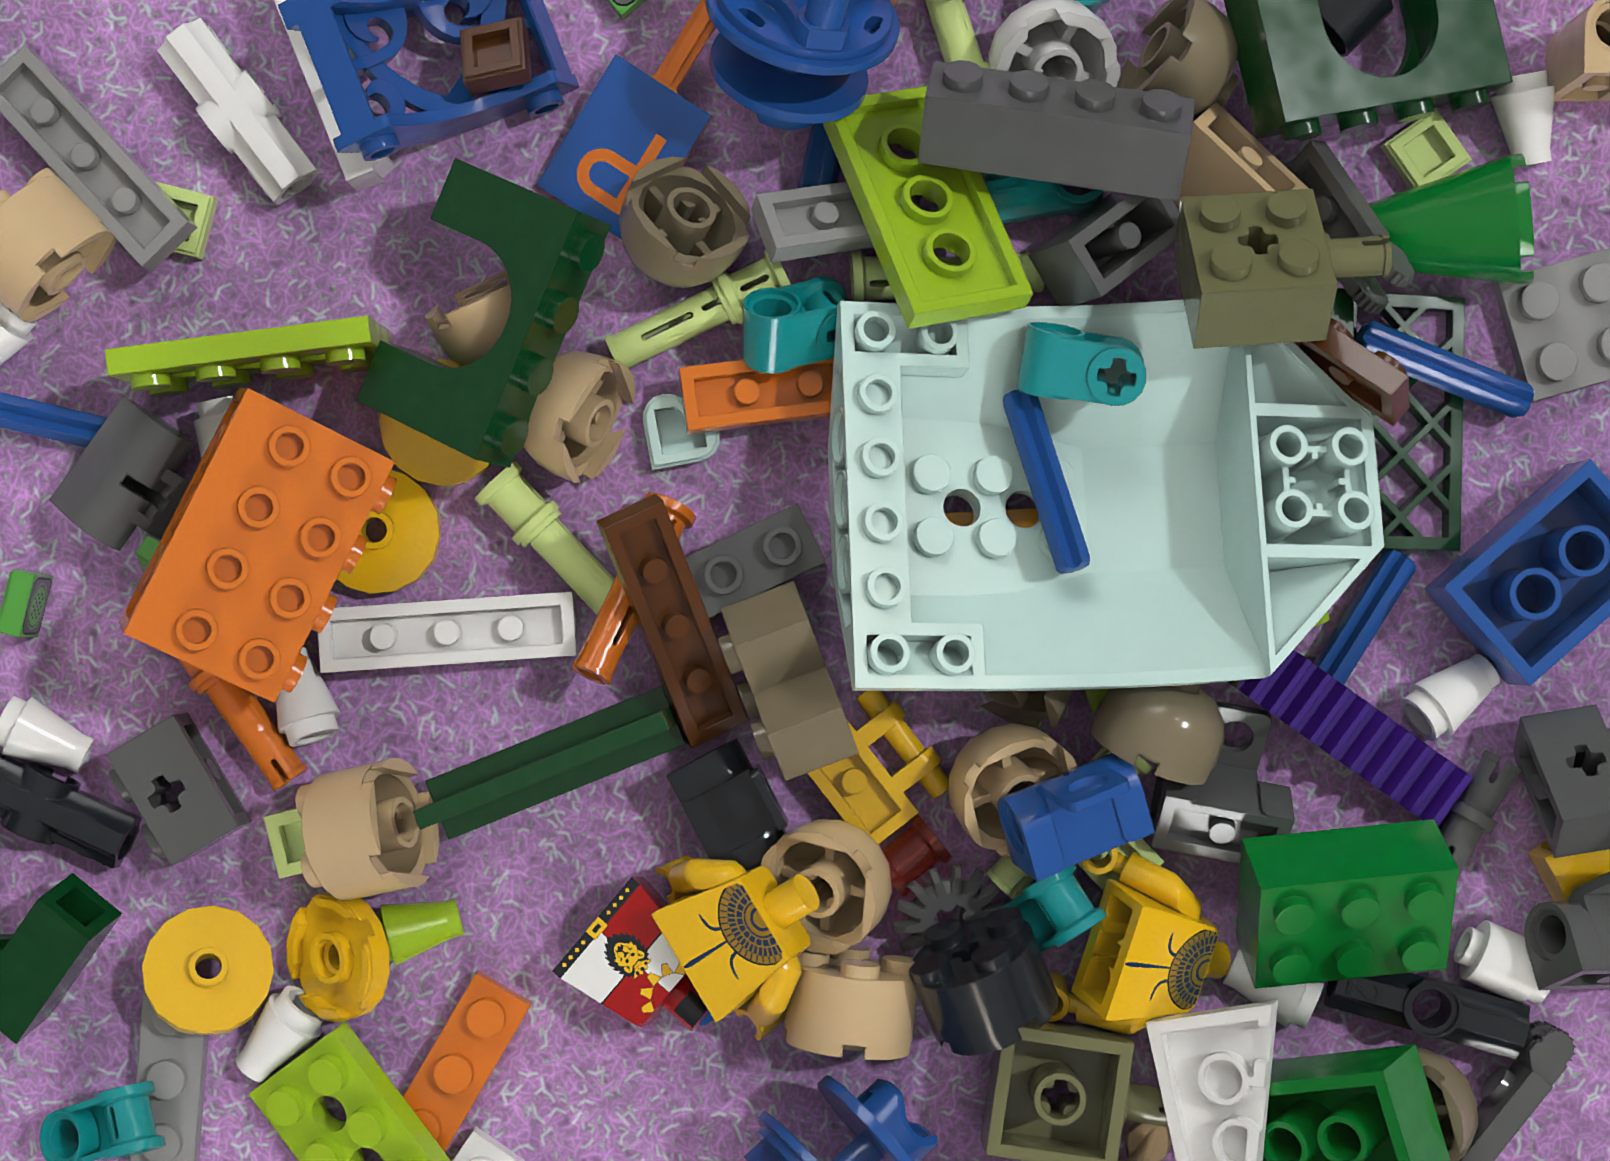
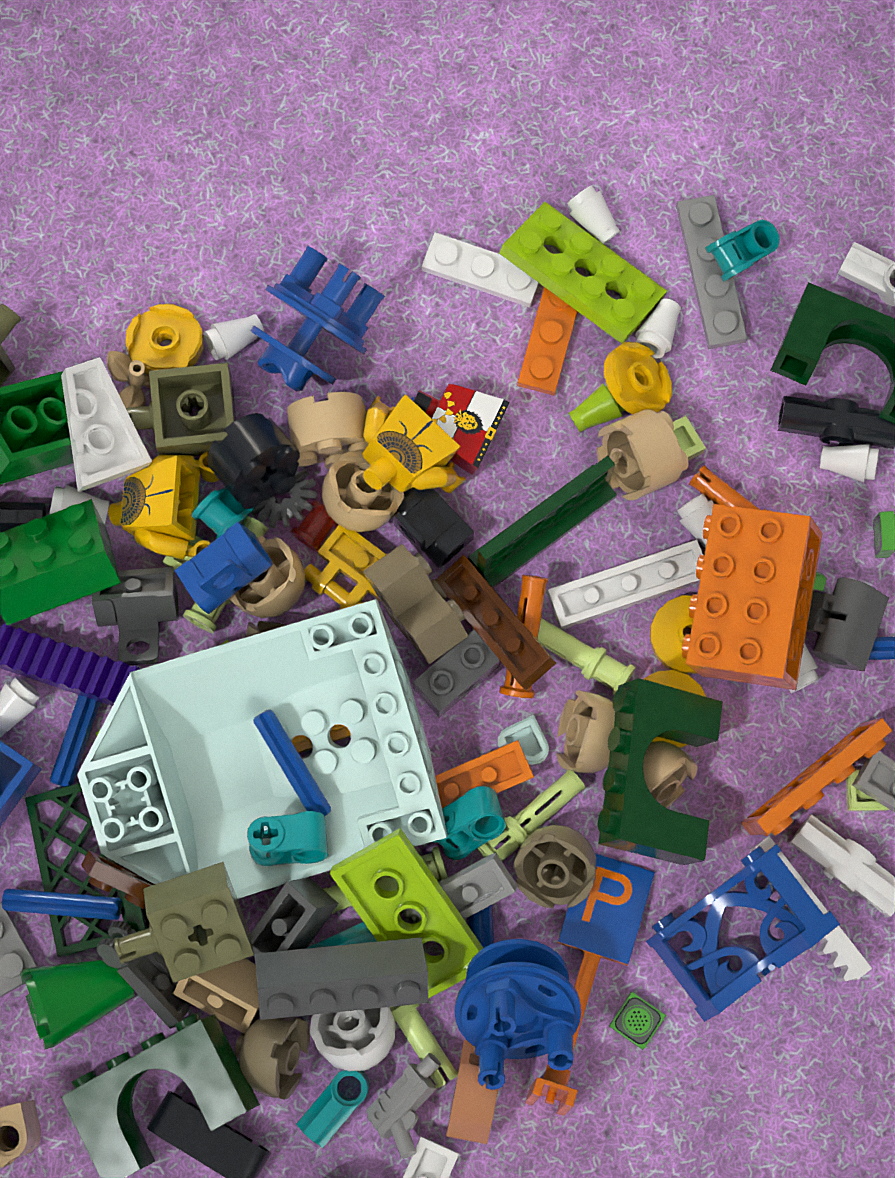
camera: 160 degrees right, 10 degrees down
(202, 1004) = (705, 332): yellow plate -> none
(203, 811) = (771, 468): dark grey brick -> none
(232, 357) = (806, 707): lime plate -> none
(245, 250) = (806, 788): none -> orange plate
(495, 55) = (700, 937): reddish brown tile -> none
(1165, 726) = (180, 632): dark tan cylinder -> none
(1425, 151) = (103, 1042): yellowish green tile -> none
(1527, 115) = (45, 1082): white cone -> none

